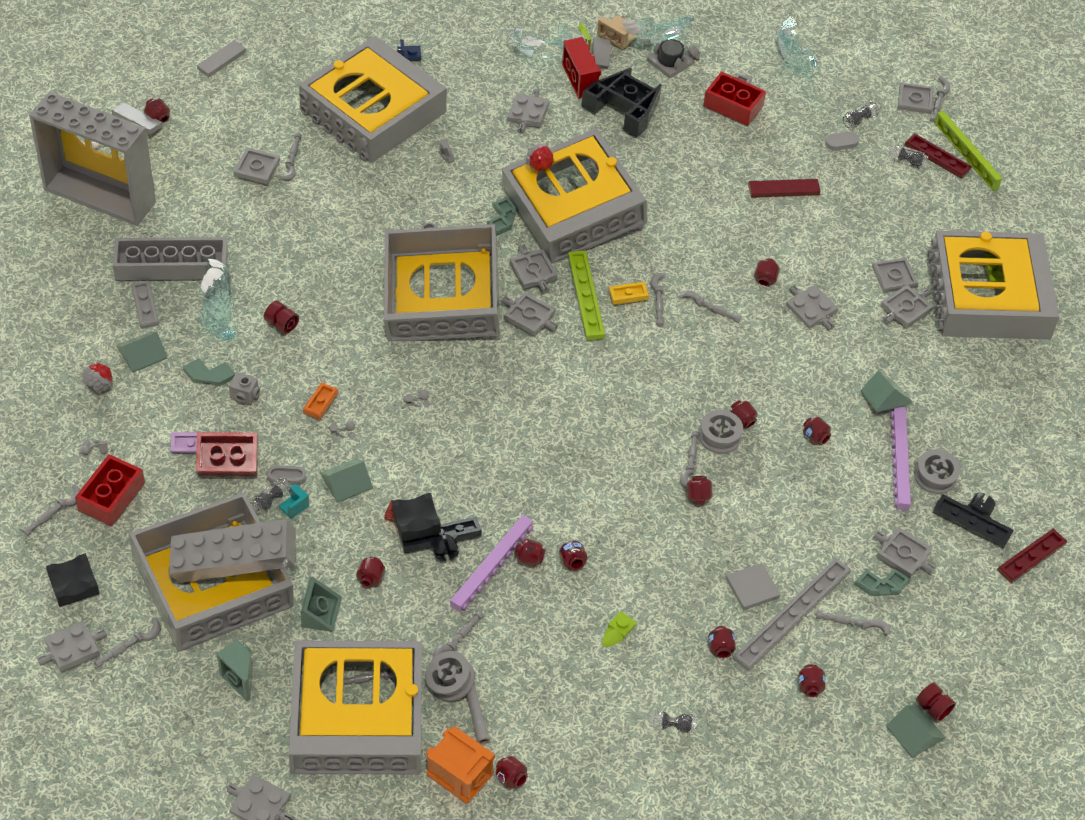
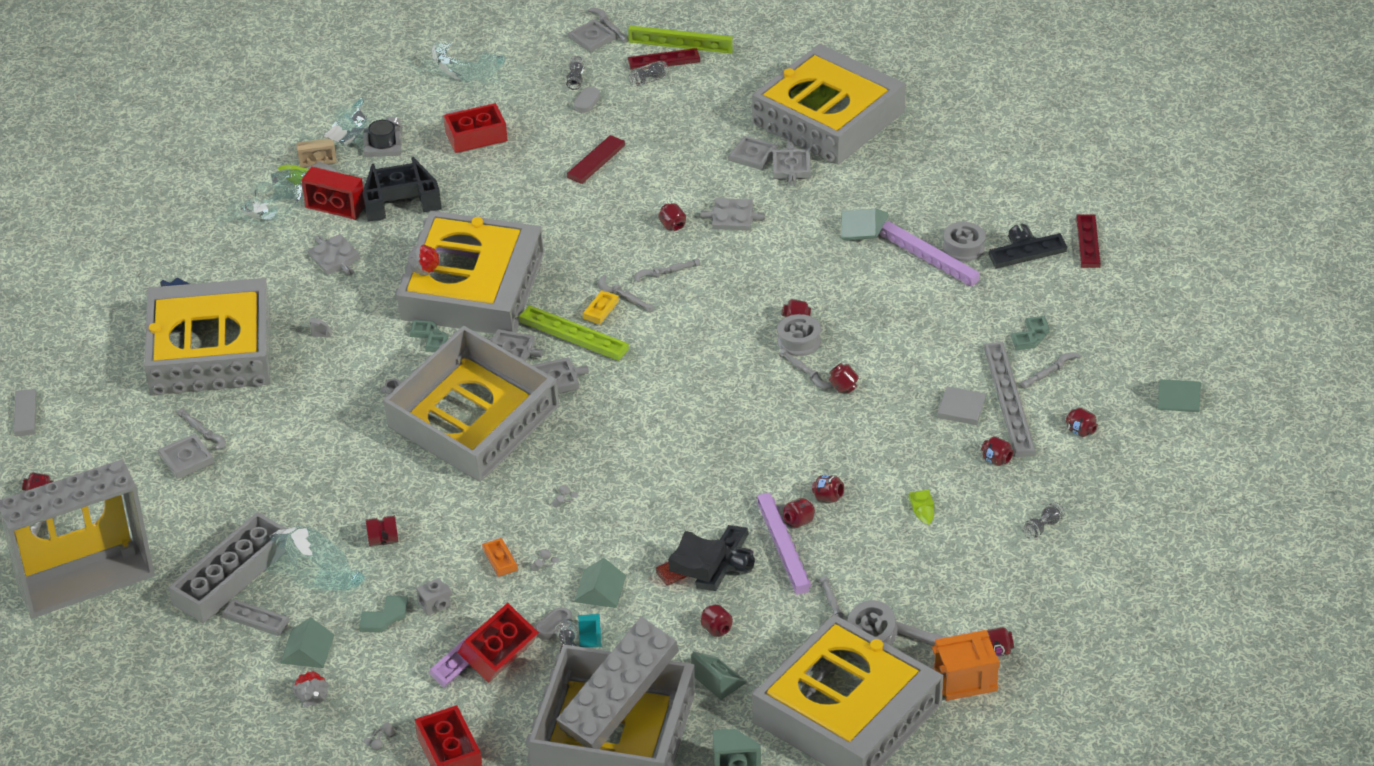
camera: 45 degrees left, 10 degrees down
(816, 430) = (855, 282): dark red head -> none
(904, 552) = (1017, 303): light grey plate -> none
(937, 703) = (1168, 366): dark red wheel -> none

